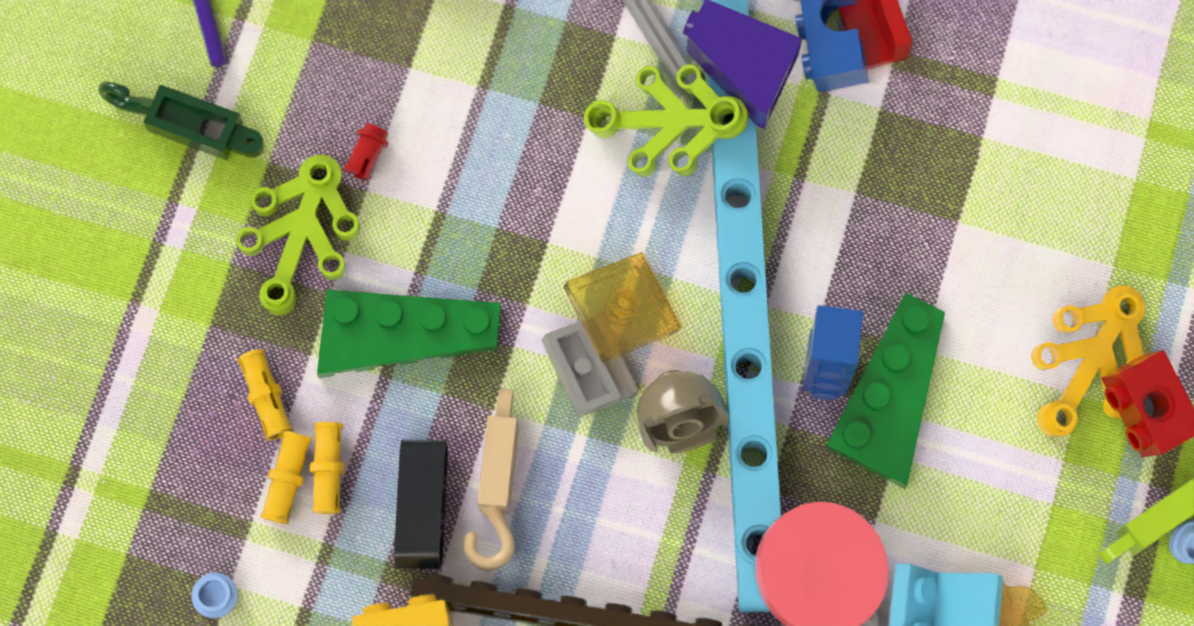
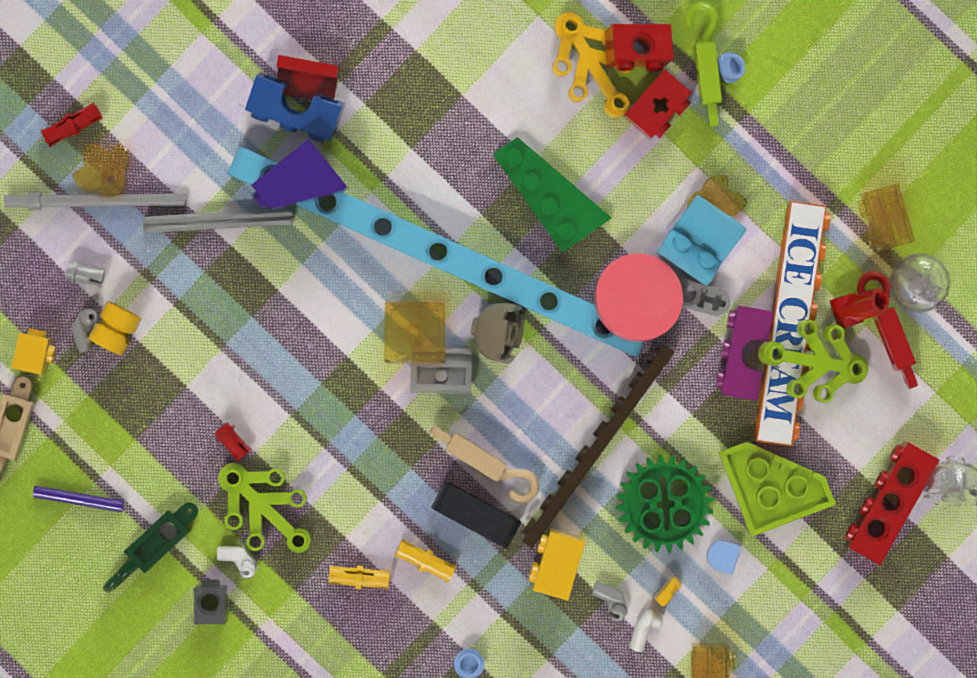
camera: 70 degrees left, 15 degrees up
(126, 215) = (204, 615): none -> dark grey brick
(222, 234) = (241, 557): none -> white arm
(285, 477) = (418, 588): yellow pin -> none
(393, 329) = (357, 478): green wing -> none
(672, 120) = (313, 240): lime plant -> none
(832, 352) = (515, 224): blue arch -> none
(1112, 465) = (642, 114): none -> red brick

